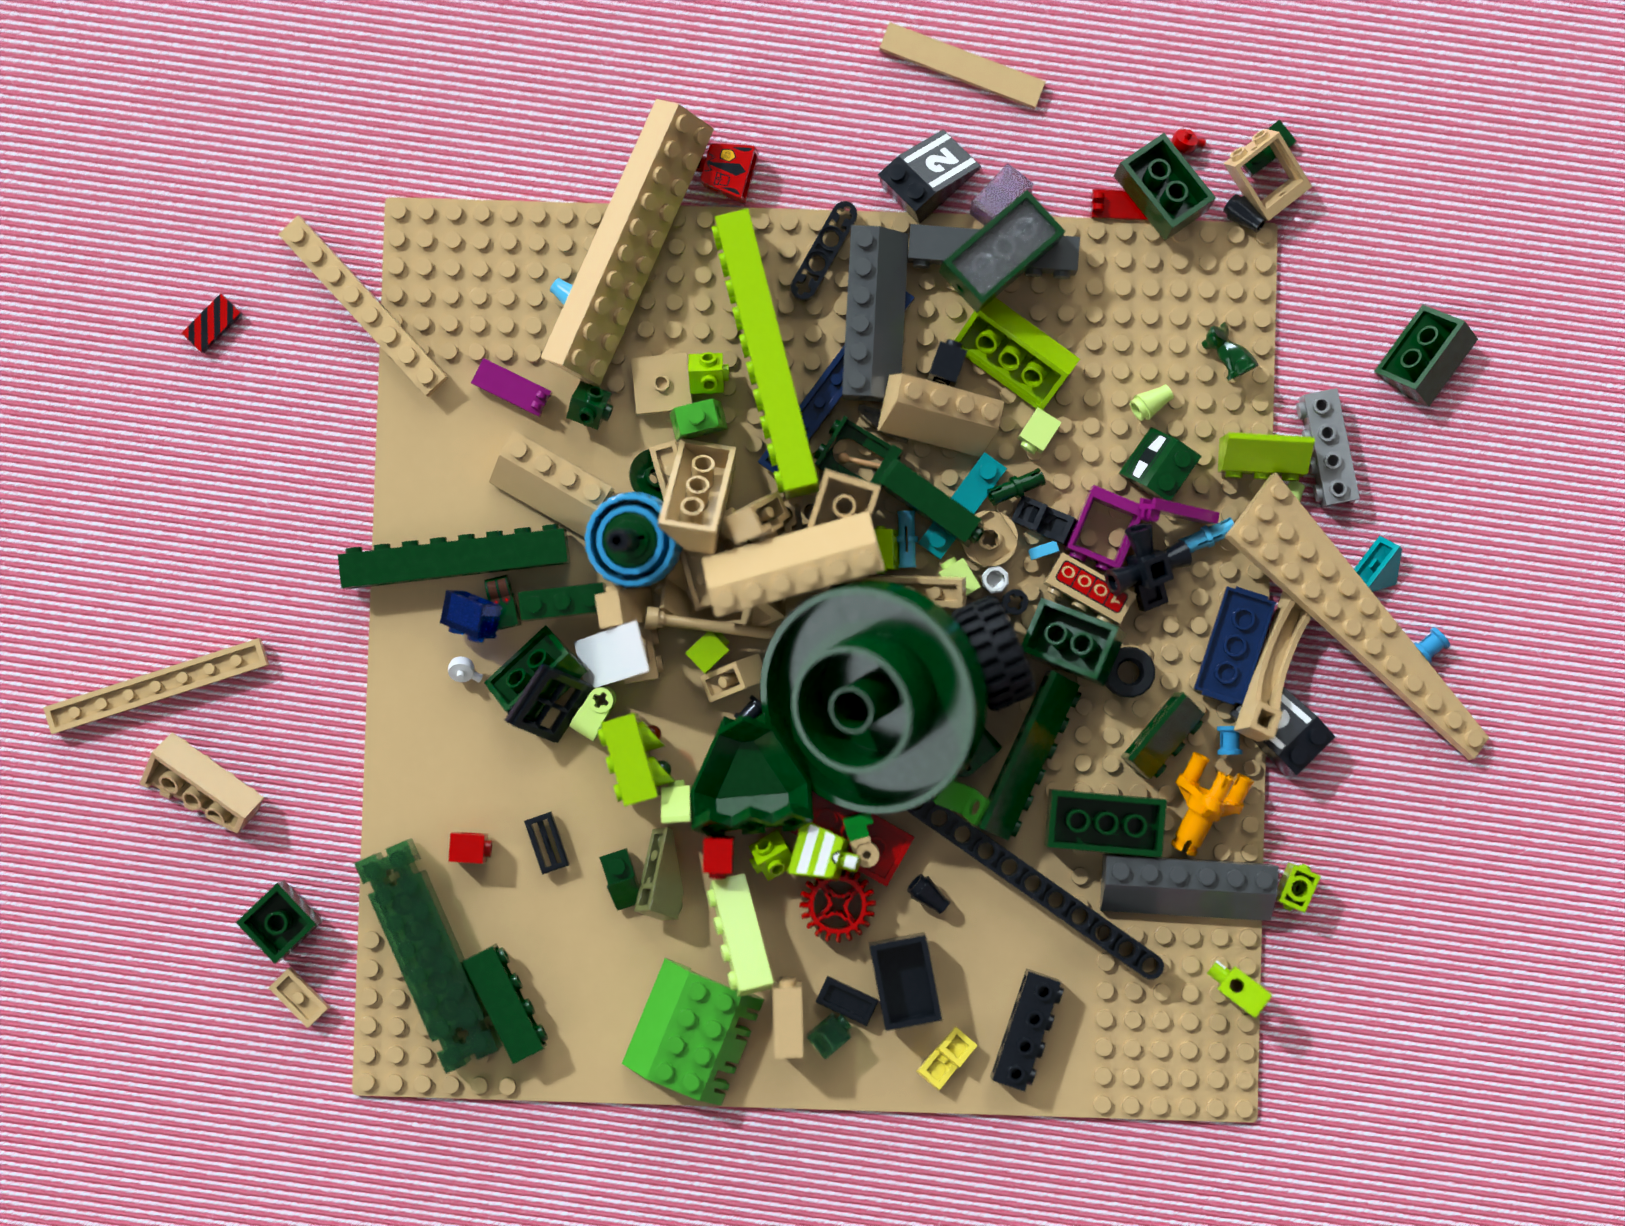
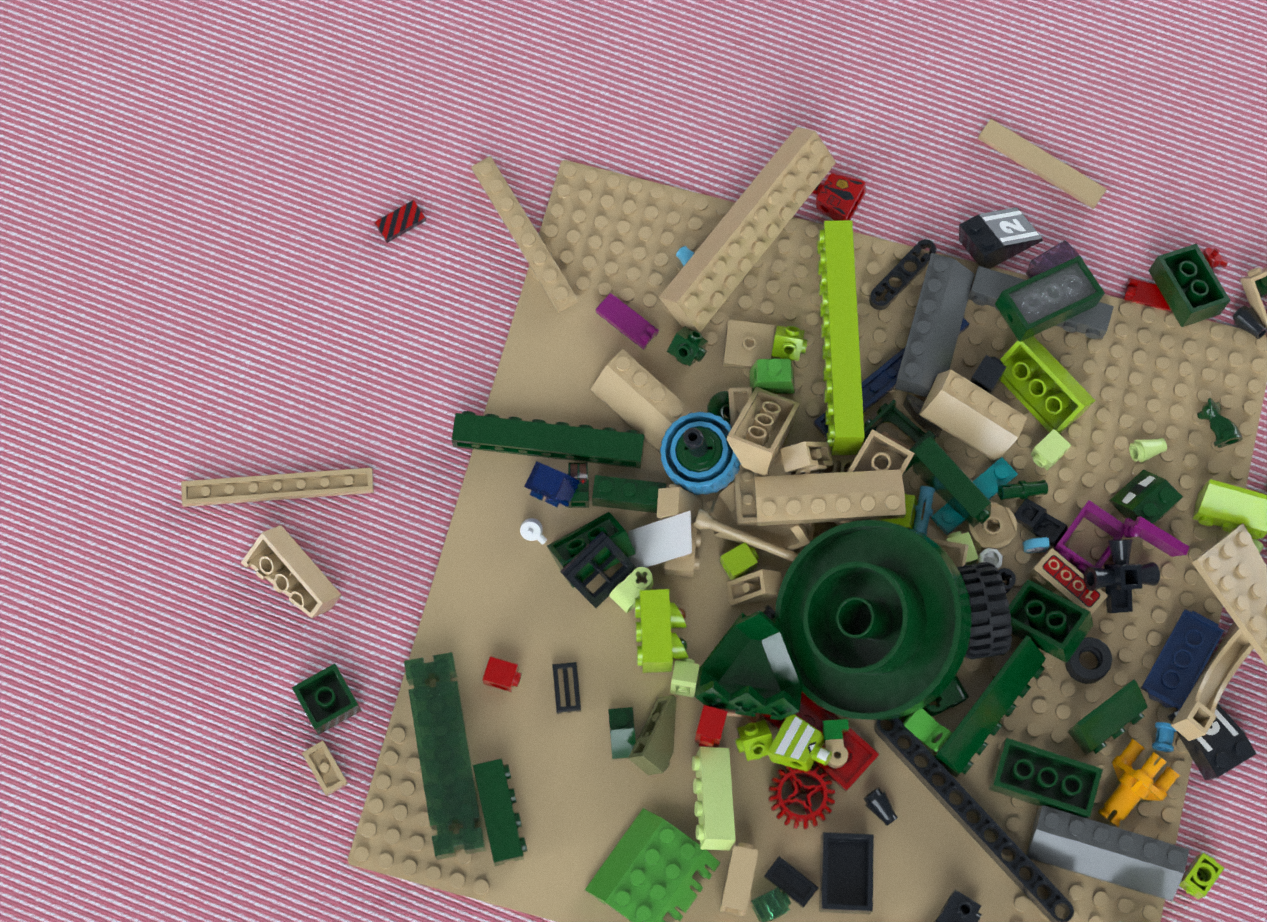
camera: 10 degrees right, 15 degrees down
(1208, 535) = (1176, 566): medium azure pin -> none

